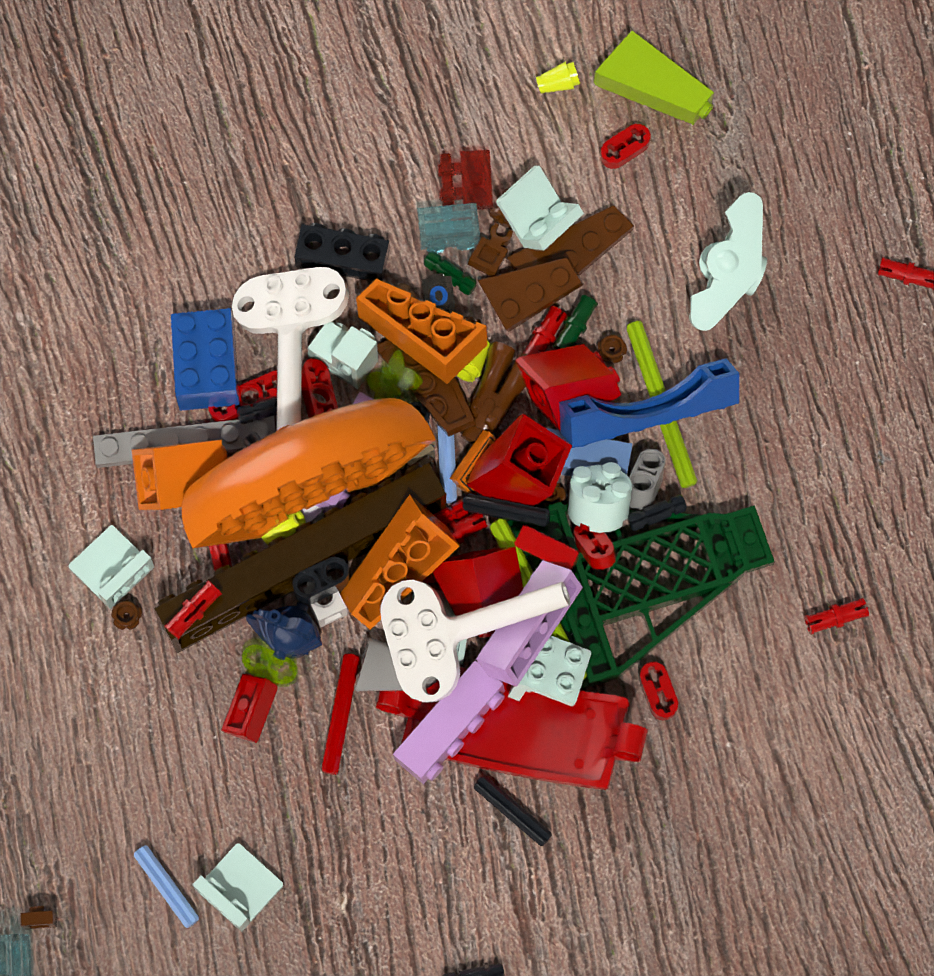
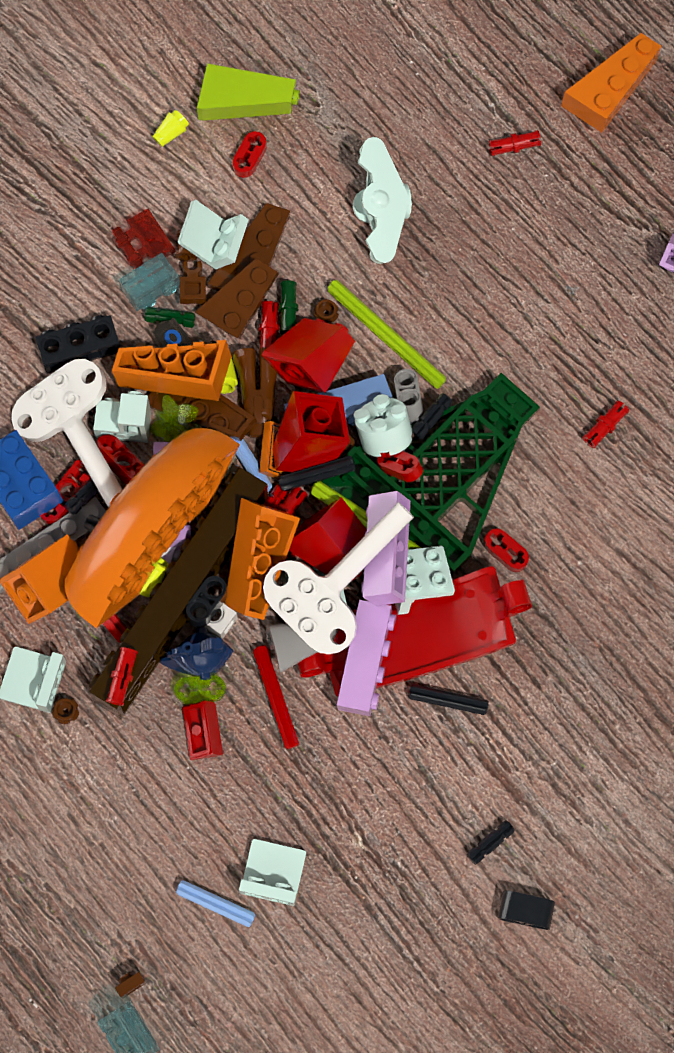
camera: 30 degrees left, 0 degrees up
(546, 548) = (366, 485): red slope -> none
(704, 390) = (416, 304): blue arch -> none

